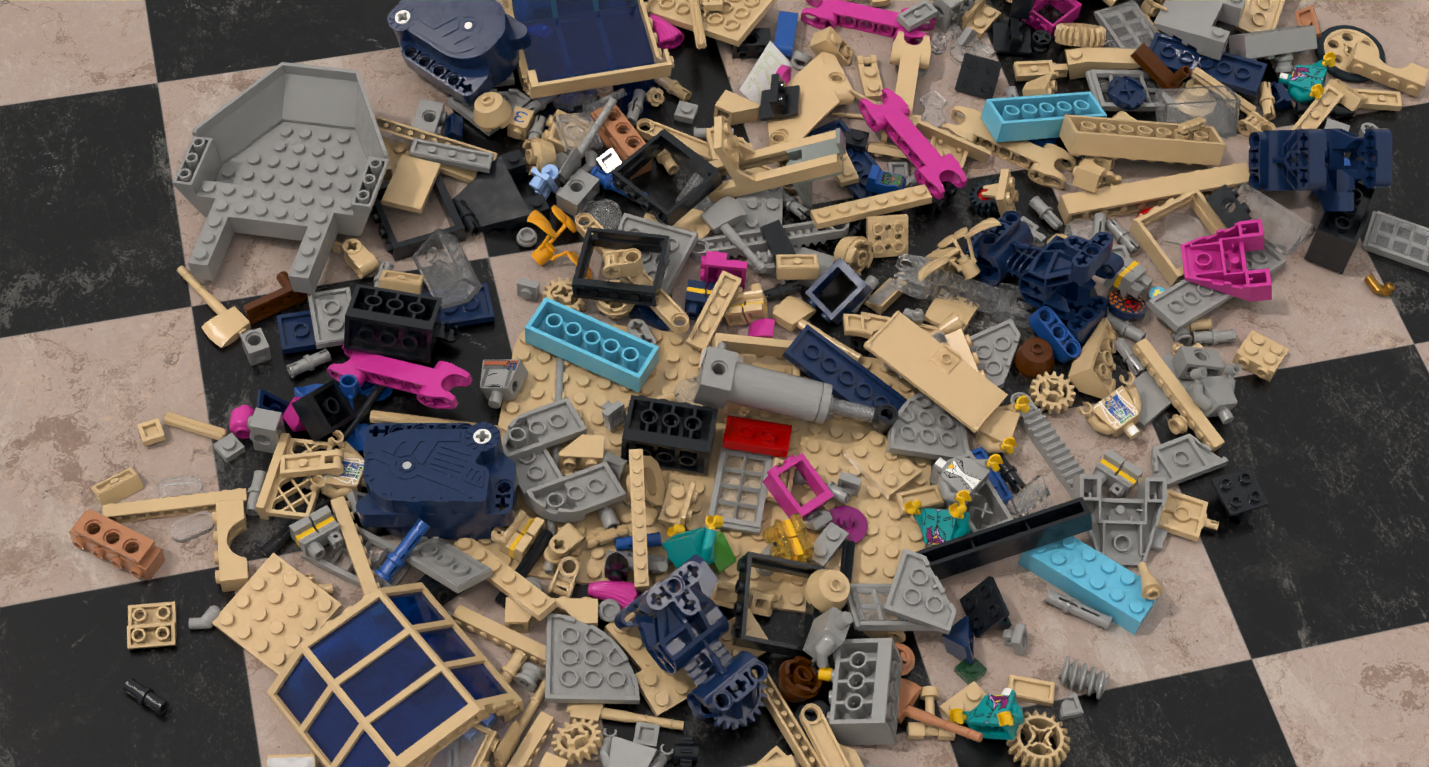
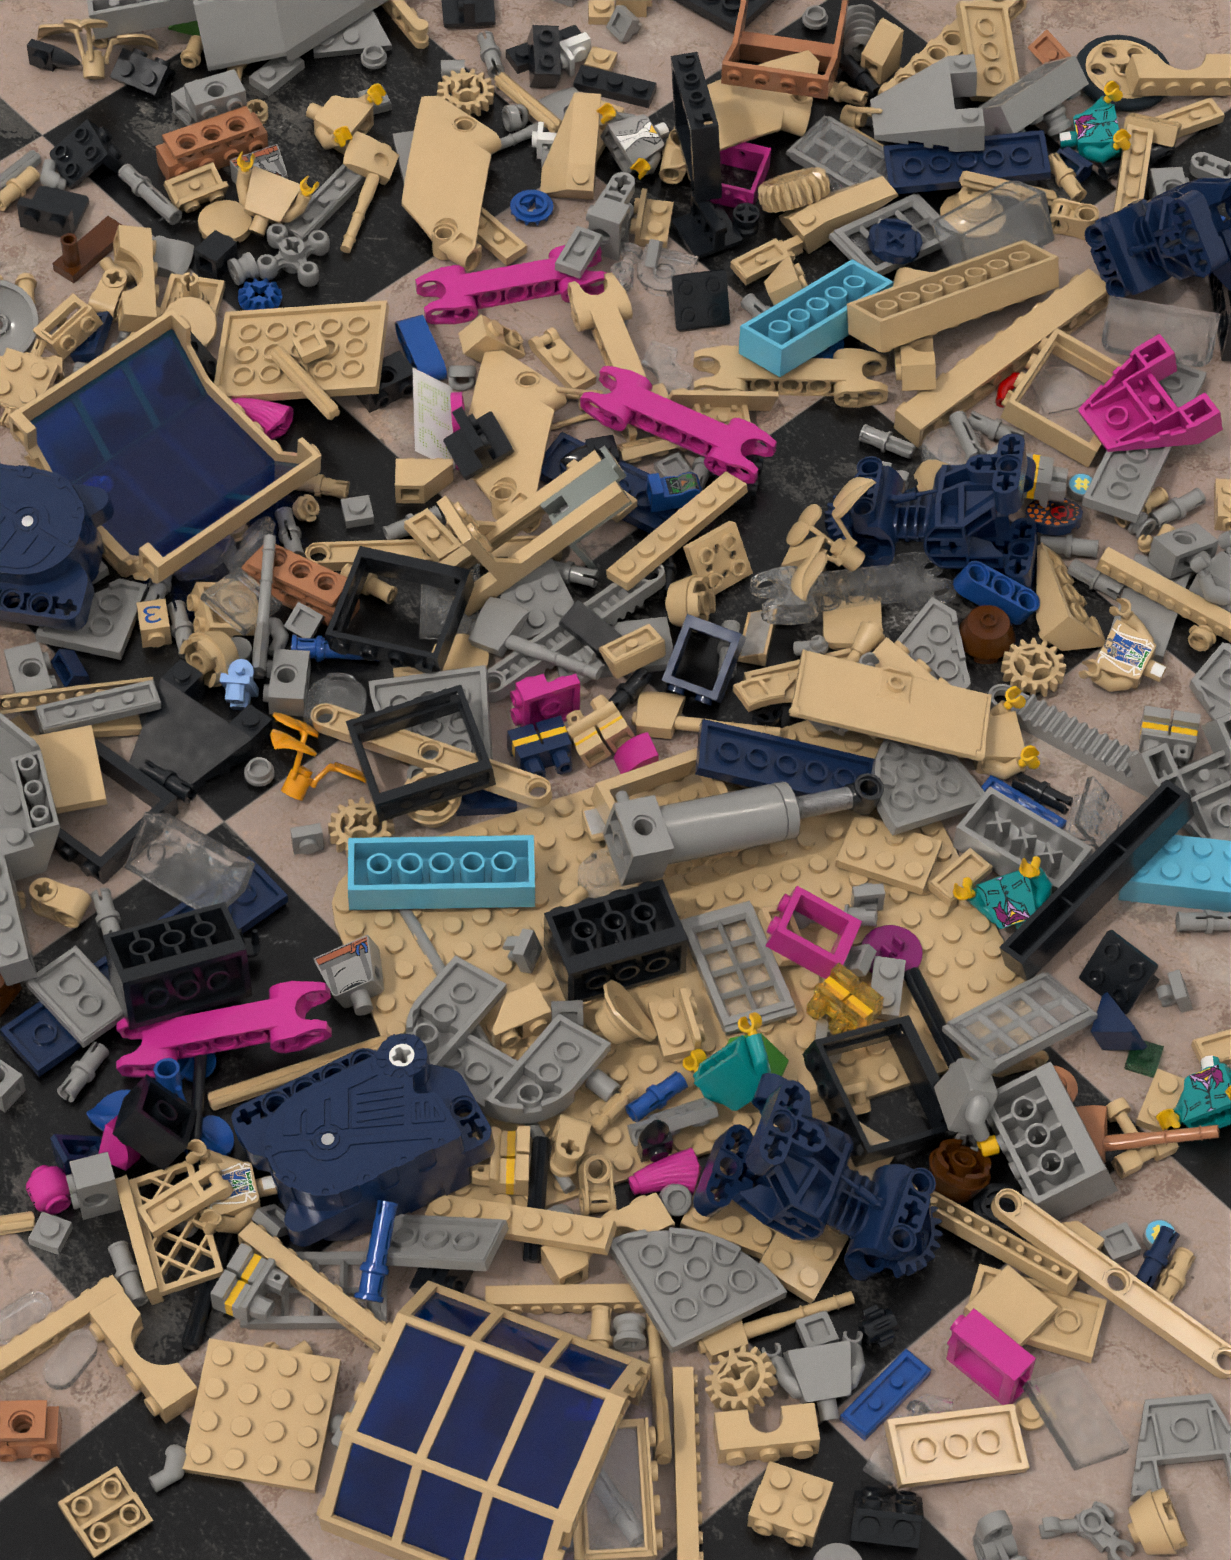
camera: 25 degrees left, 0 degrees up
(401, 281) = (140, 908): tan slope -> none
(491, 111) = (113, 625): tan cone -> none
(624, 263) = (427, 747): tan piece -> none
(638, 513) = (652, 1066): tan piece -> none
(645, 333) = (494, 826): light grey beam -> none
(713, 311) = (567, 757): tan plate -> none
(757, 436) = (720, 892): red plate -> none
(827, 589) = (932, 1041): tan cone -> none
(919, 594) = (1043, 994): light grey plate -> none
(964, 477) = (1008, 823): light grey torso -> none
(995, 196) = (817, 449): plate -> none
(1111, 179) = (943, 362): tan piece -> none
(1158, 70) = (916, 195): reddish brown piece -> none
(1191, 125) = (1003, 250): tan axle -> none
(1219, 200) = (1092, 335): black brick -> none

